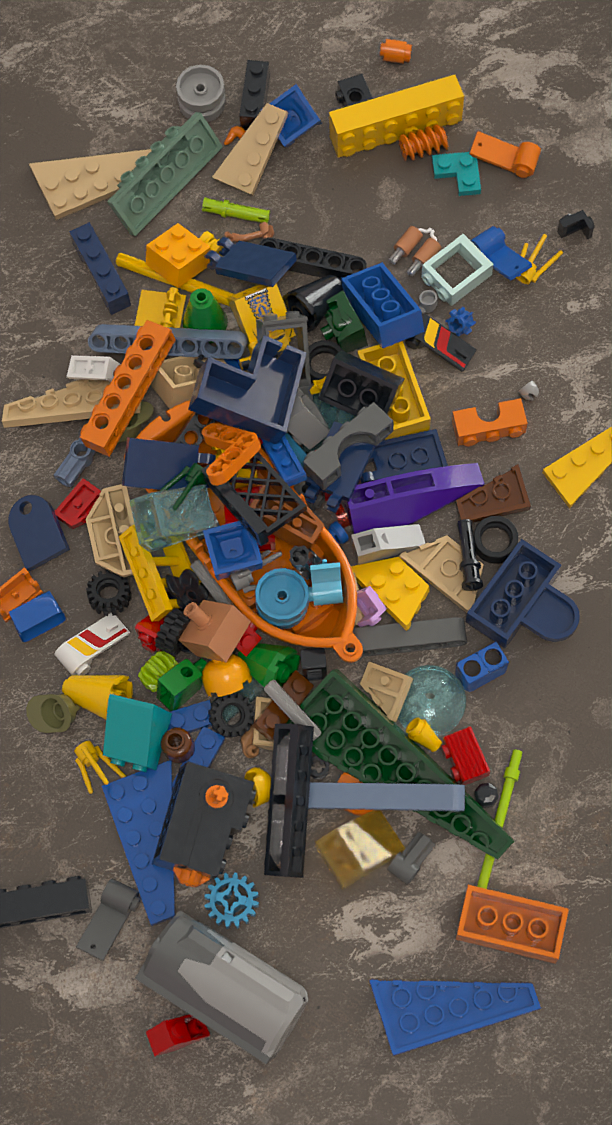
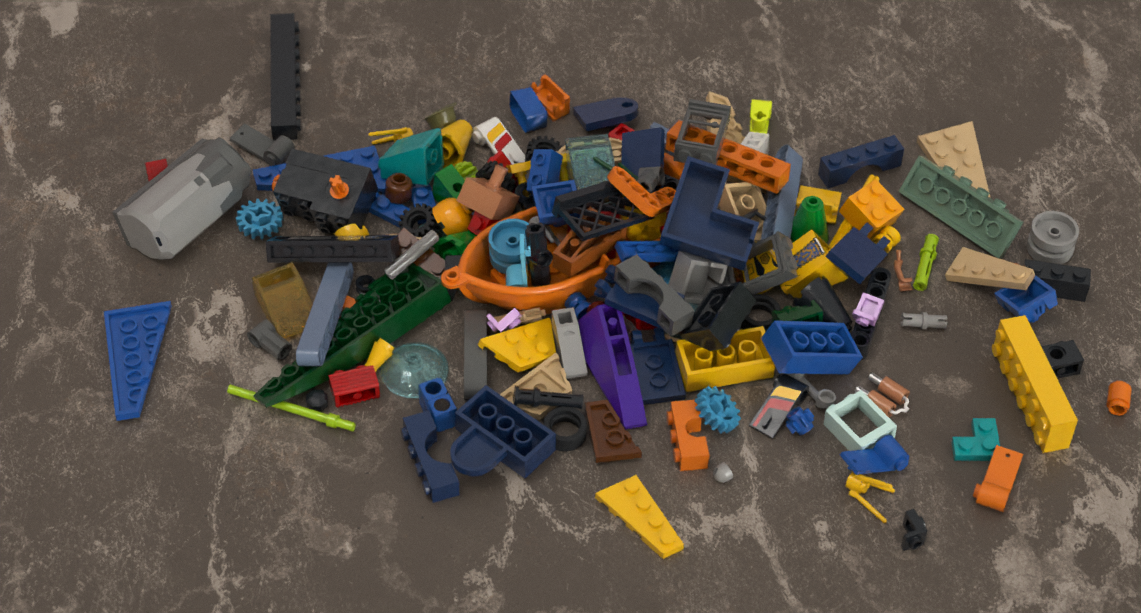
camera: 90 degrees right, 20 degrees down
(32, 370) = (760, 115): none -> neon yellow piece
(81, 399) = (697, 150): none -> dark grey door
(180, 570) = (544, 168): none -> blue brick
(199, 450) = (651, 177): none -> dark grey piece
(315, 214) = (923, 320): none -> light grey pin
(328, 254) = (868, 310): none -> lavender bracket
(386, 688) = (427, 332): tan wing -> none
(423, 141) = (1008, 410): orange piece -> none
(459, 394) = (717, 409): none -> dark azure gear
(512, 924) = (192, 399): orange brick -> none
(522, 680) = (438, 477): none -> dark blue arch

